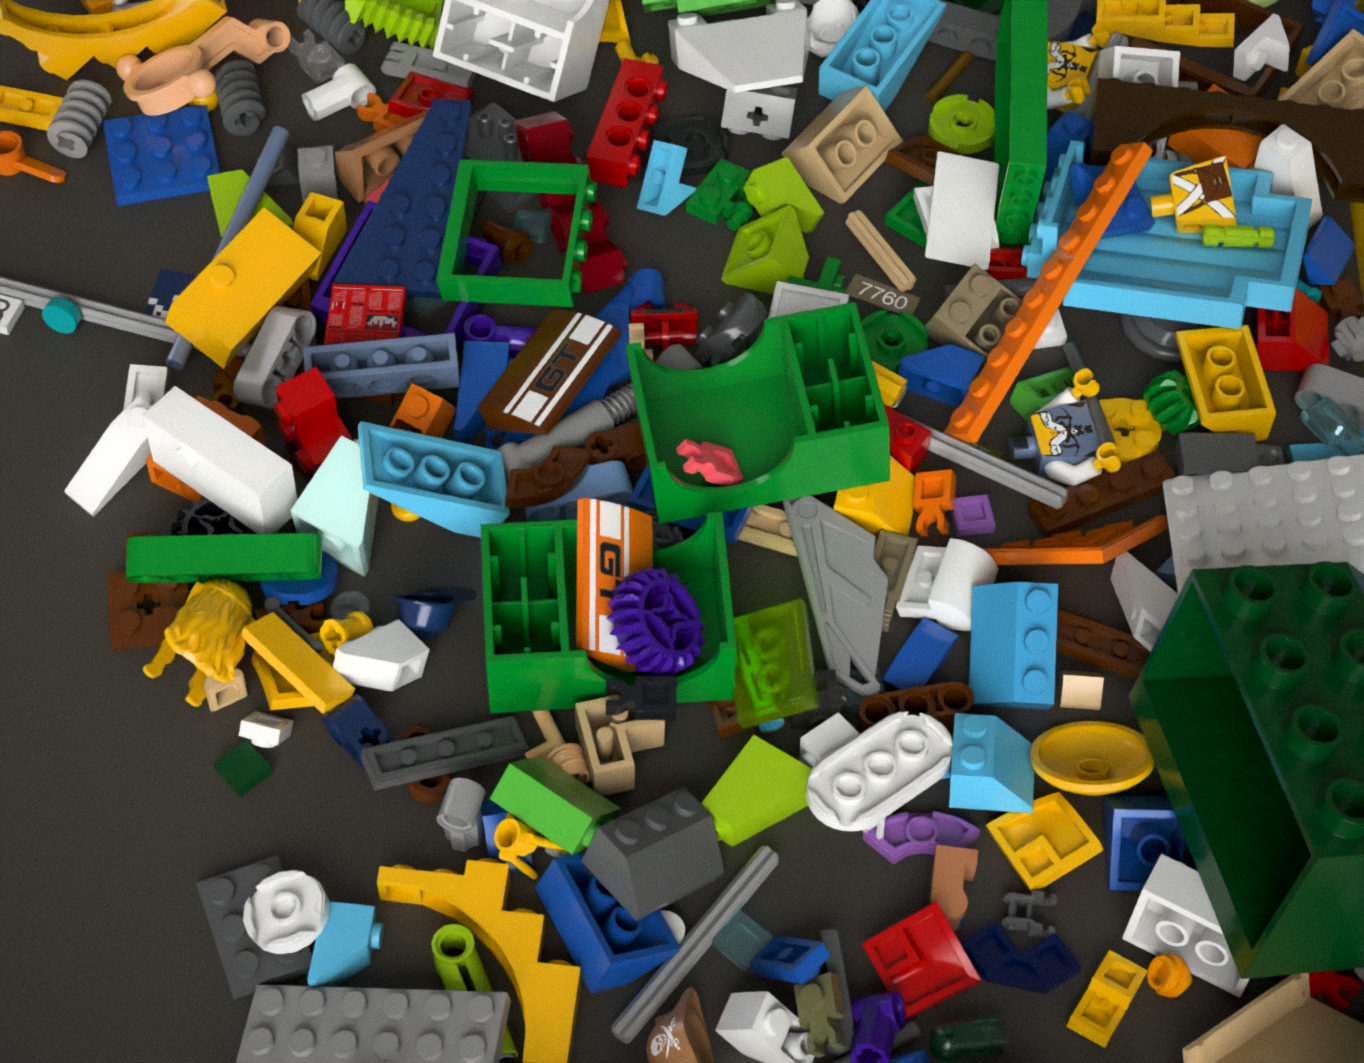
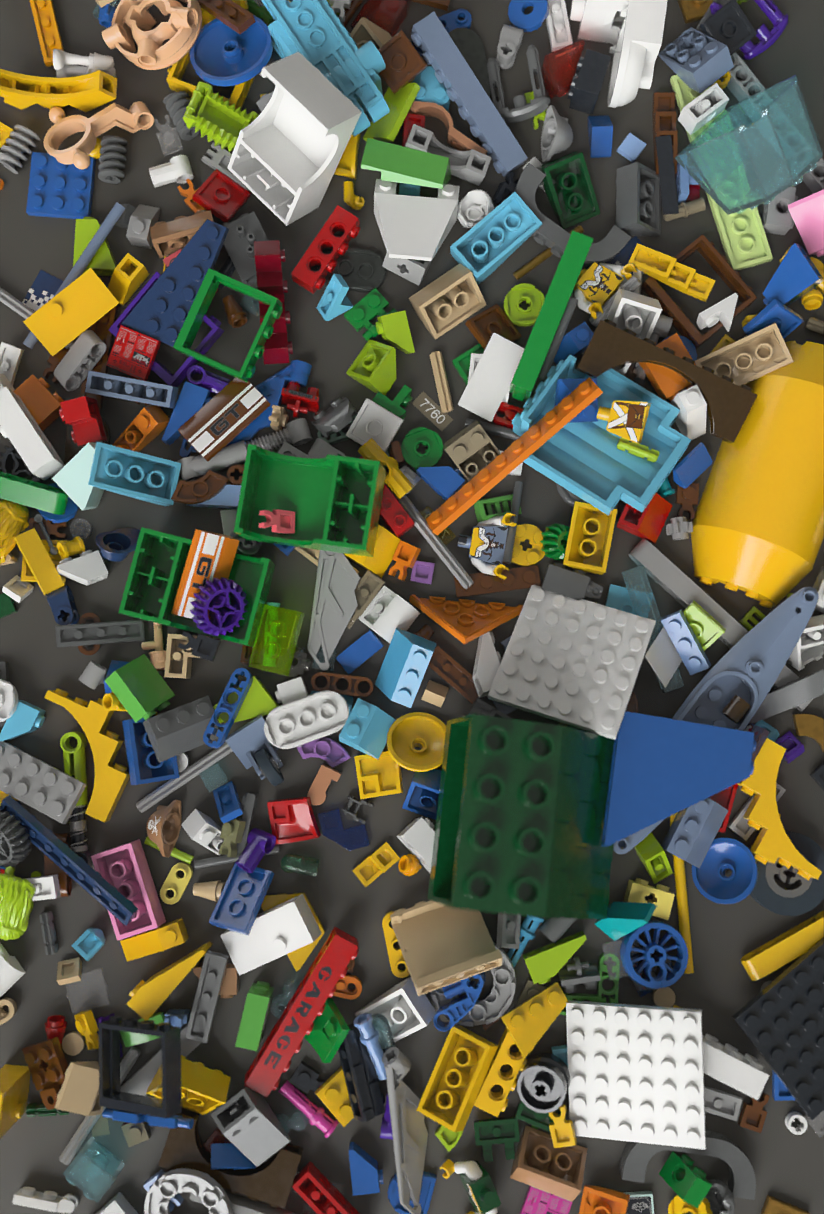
camera: 20 degrees right, 30 degrees up
(730, 790) = (231, 709): none -> blue beam
(809, 859) = (253, 750): none -> sand blue plate

